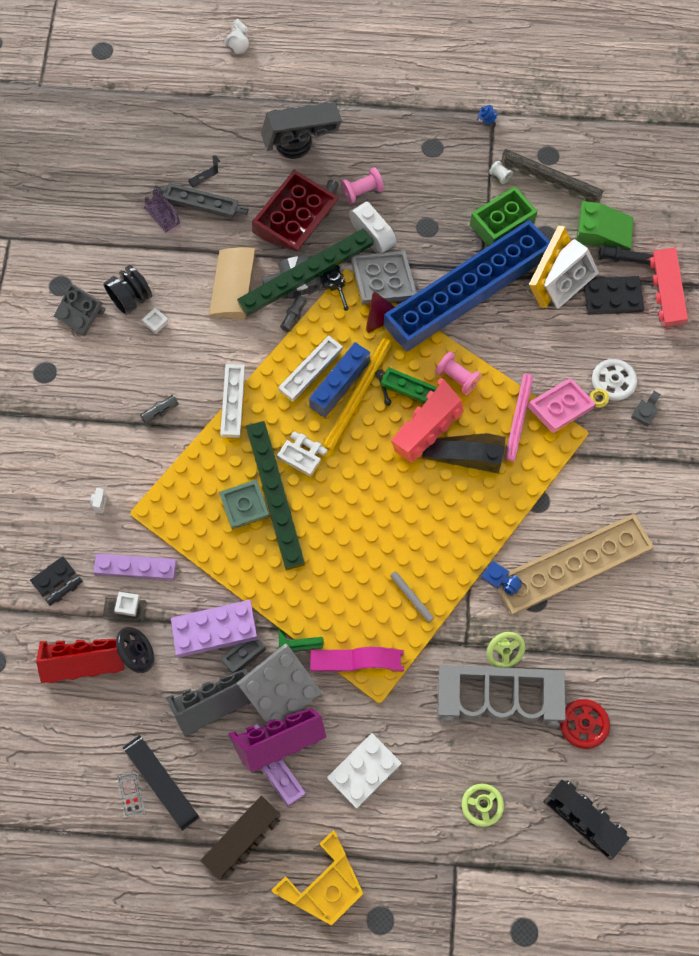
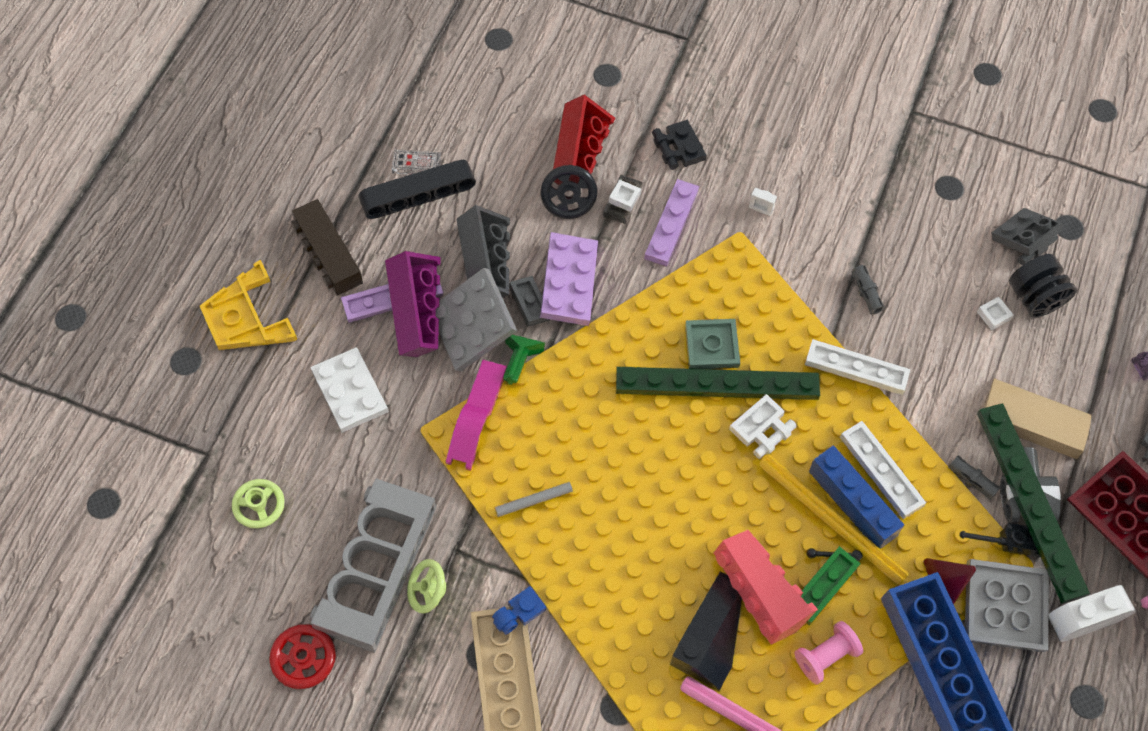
camera: 105 degrees right, 5 degrees down
(586, 819) = (188, 609): black wedge -> none

